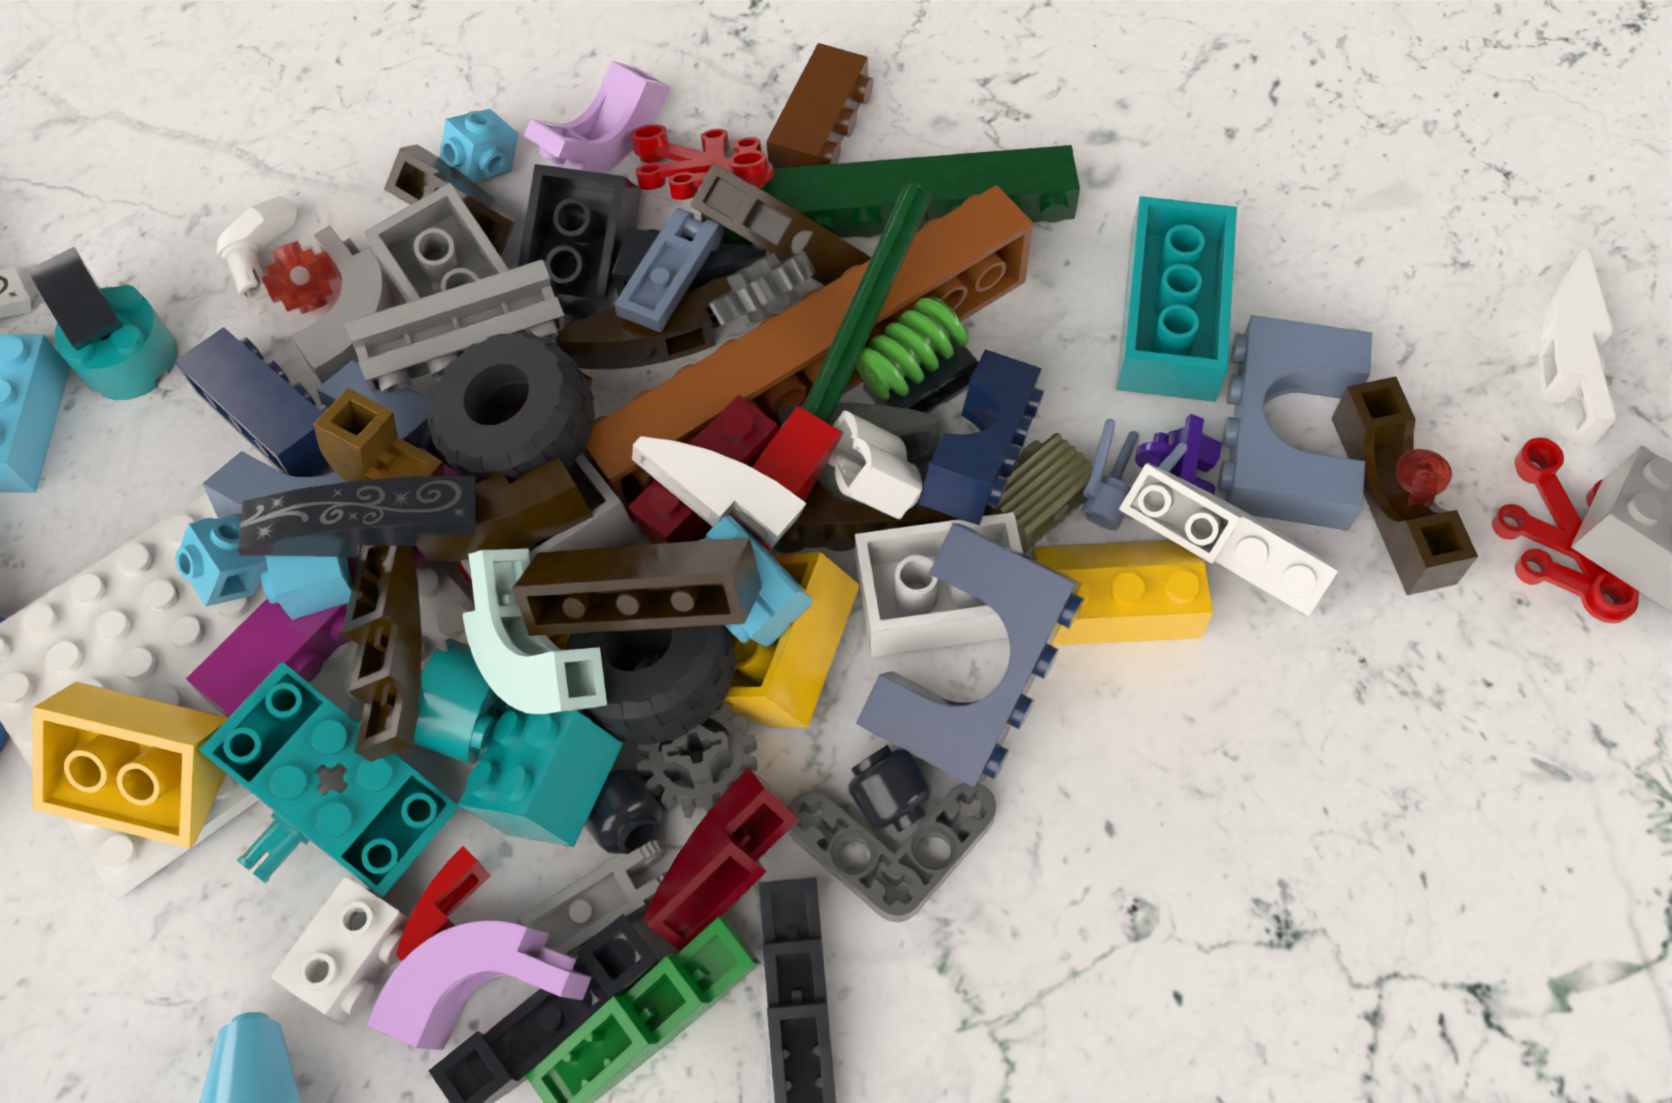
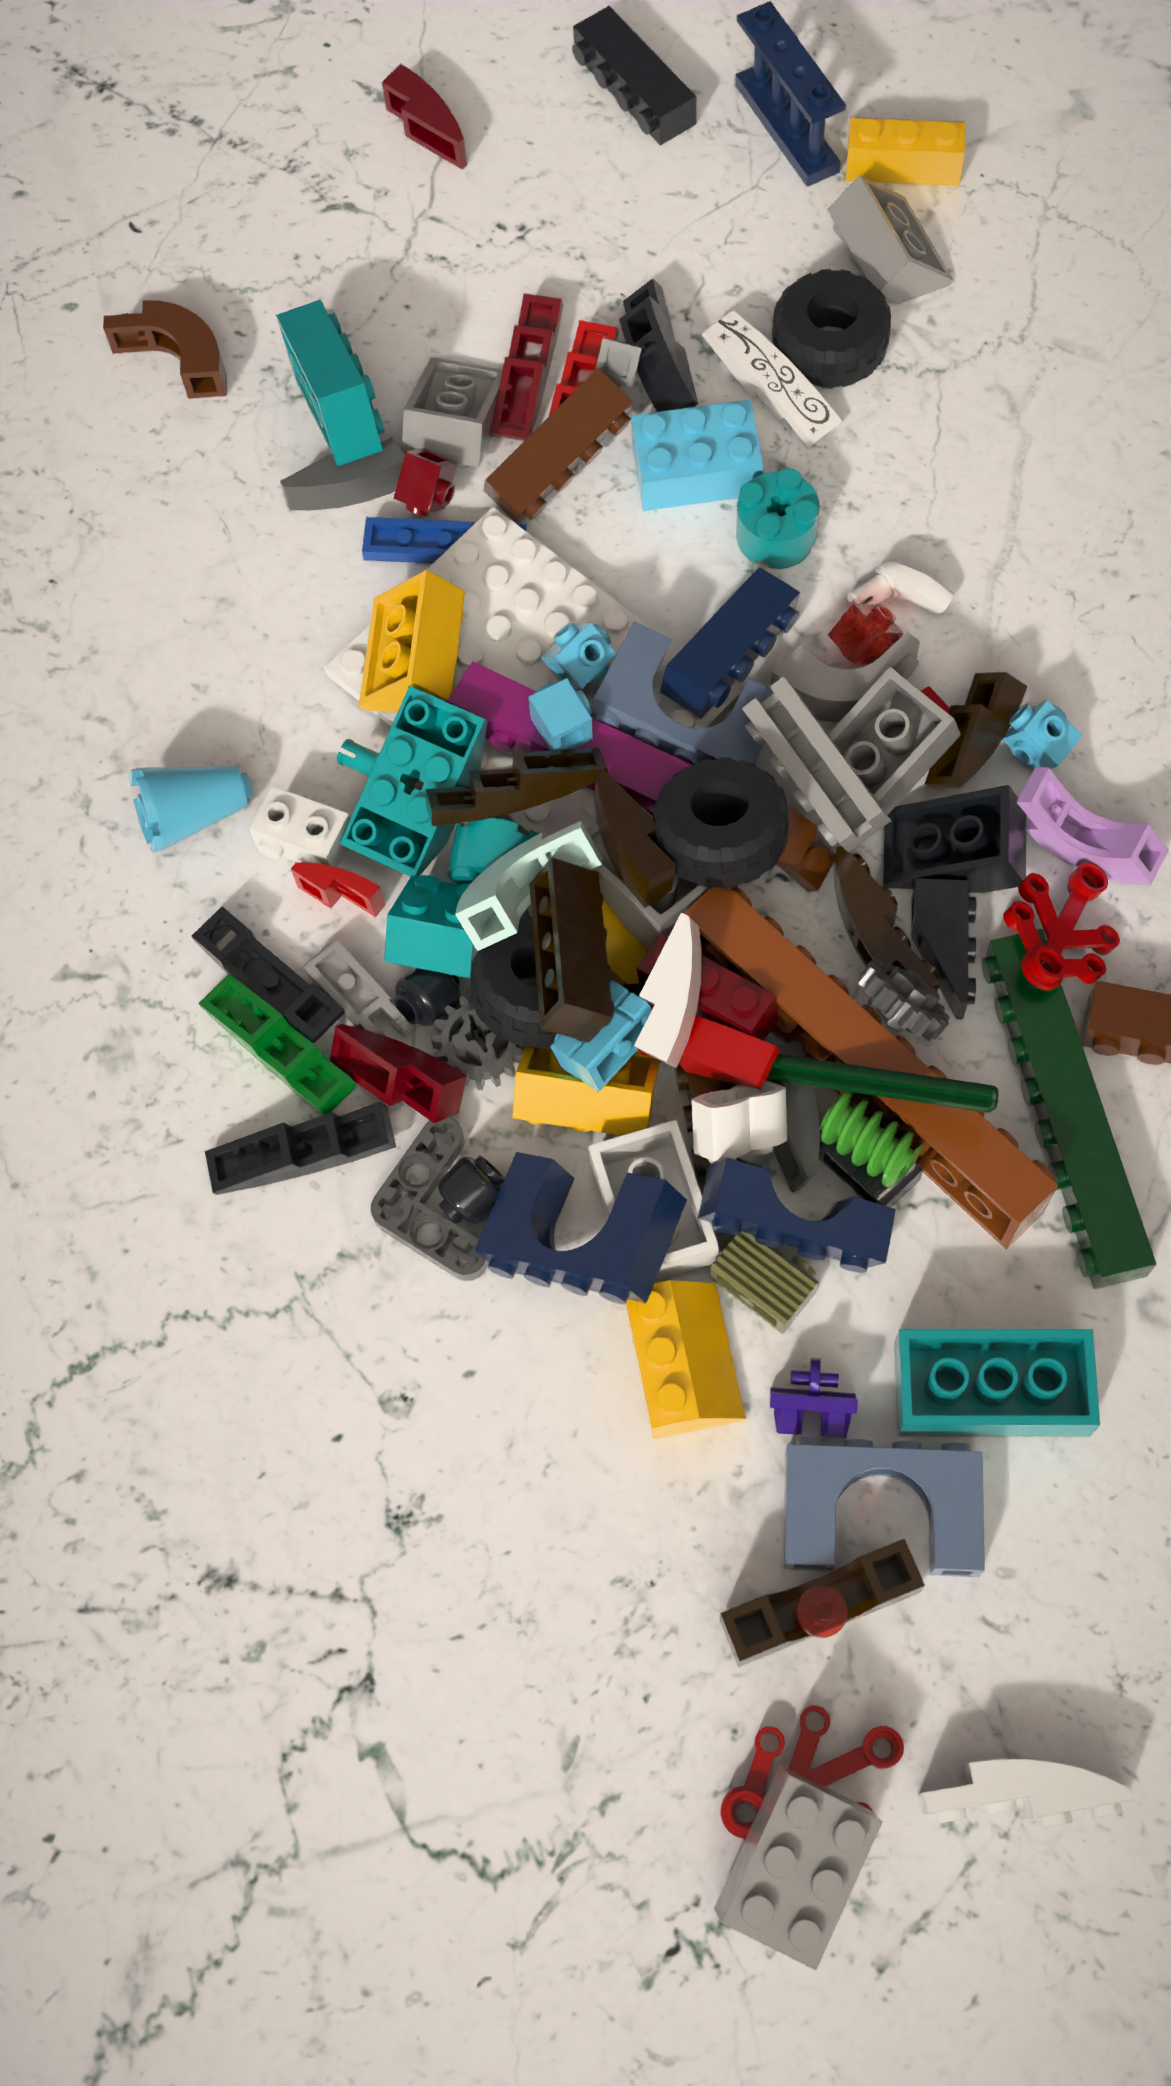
camera: 85 degrees right, 5 degrees up
(75, 298) = (790, 472): black slope -> none
(343, 515) = (596, 735): black slope -> none
(363, 442) = (669, 733): pearl gold brick -> none
(441, 974) = (281, 894): lavender arch -> none
(668, 269) = (921, 921): sand blue plate -> none
(774, 225) = (982, 1004): dark brown slope -> none
(1108, 493) = (762, 1339): sand blue plant -> none
(1229, 537) = (744, 1432): white slope -> none

